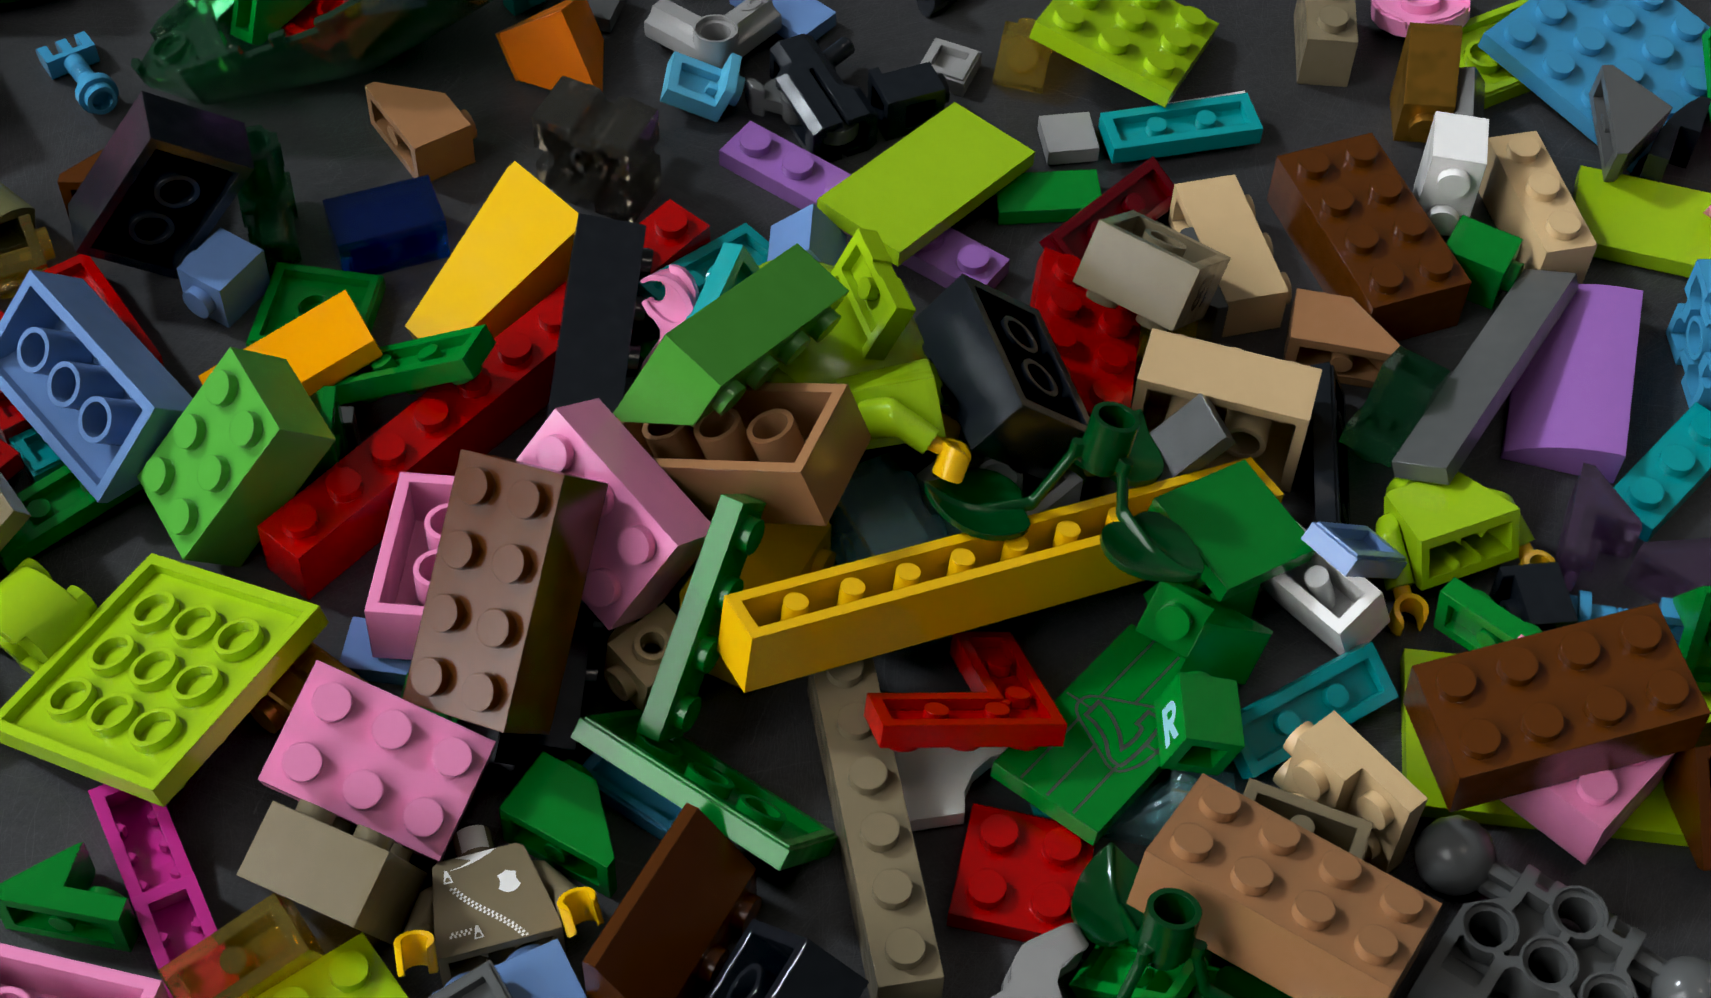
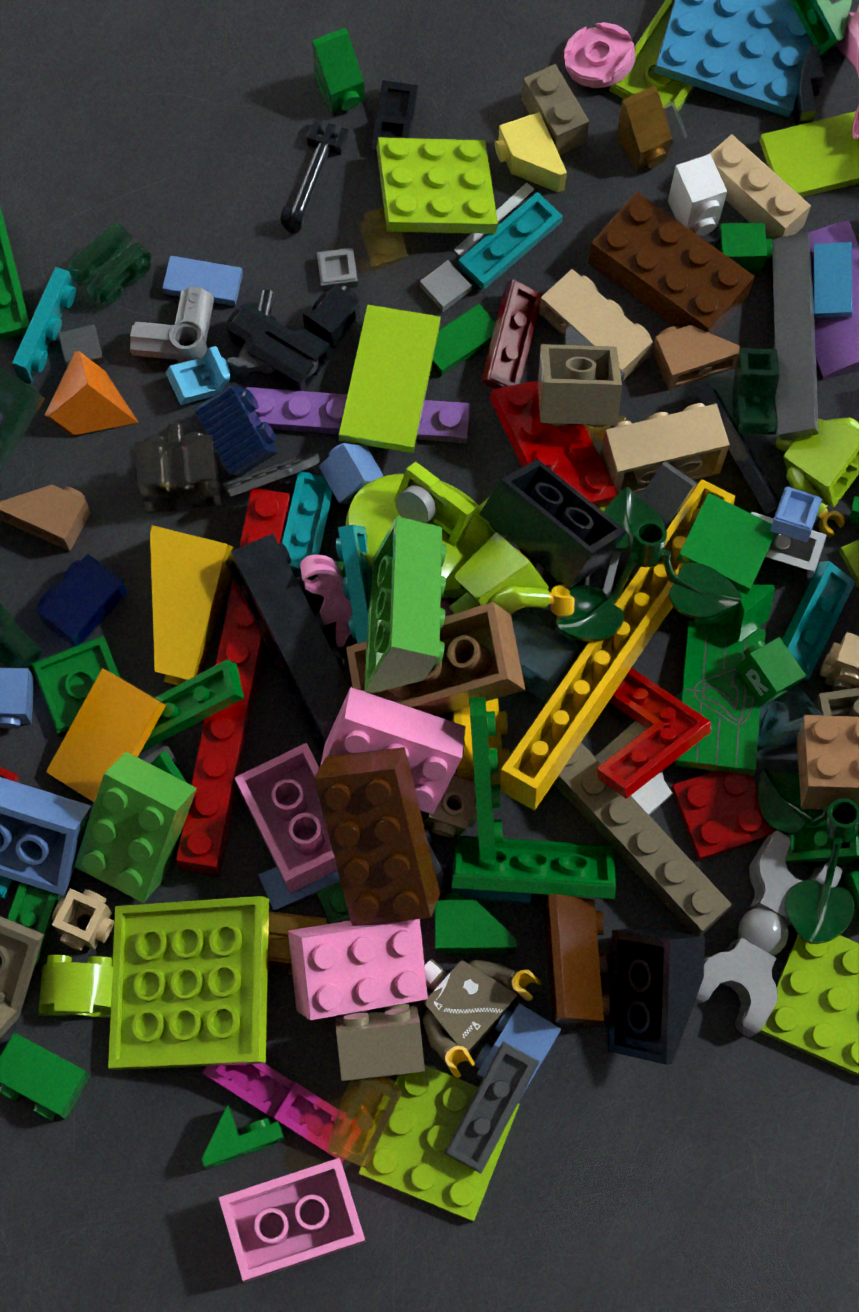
camera: 30 degrees left, 20 degrees up
(96, 538) = (76, 907): none -> tan brick
(702, 147) = (237, 430): none -> dark blue brick
(756, 212) = (270, 474): none -> dark grey window
(853, 273) = (416, 504): none -> light grey tile
(1266, 54) = (531, 152): none -> light yellow slope
(1579, 340) = (833, 280): none -> dark azure tile
(1624, 119) = (777, 95): dark grey slope -> none

